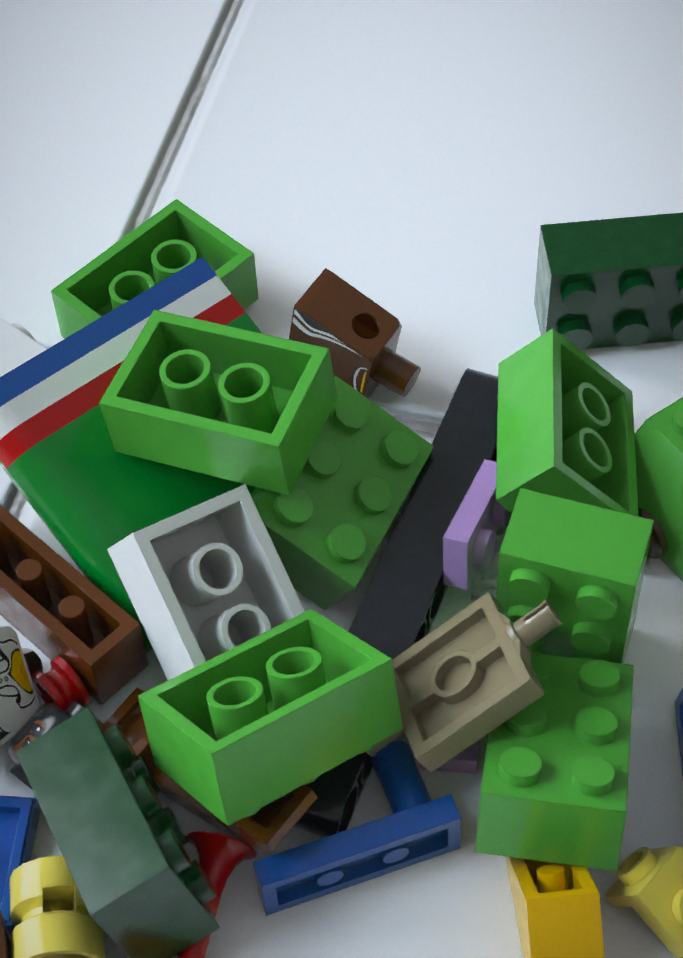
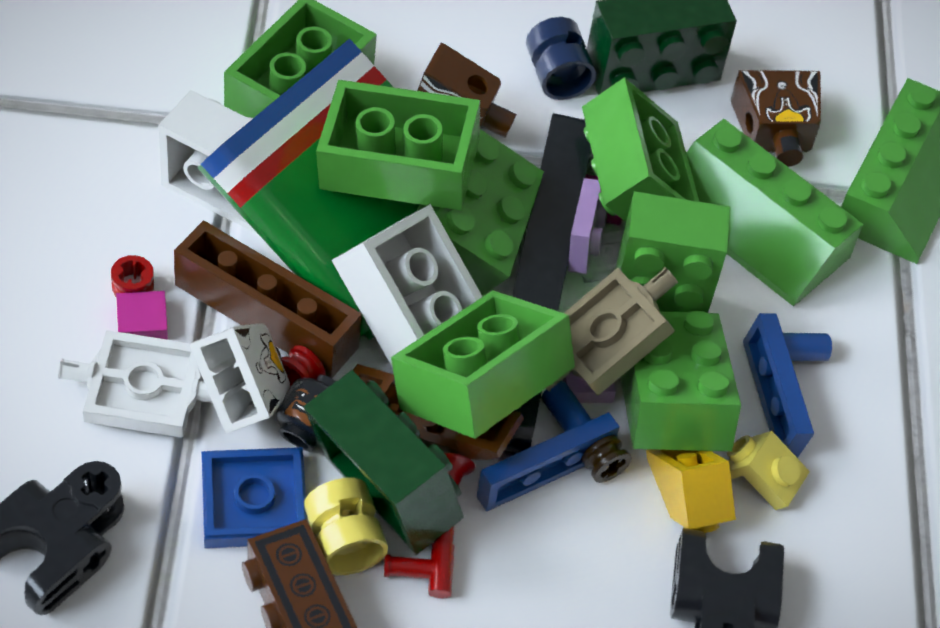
camera: 20 degrees left, 0 degrees up
(442, 859) = (606, 458): none -> dark brown bush
(495, 297) = (560, 58): none -> dark blue wheel

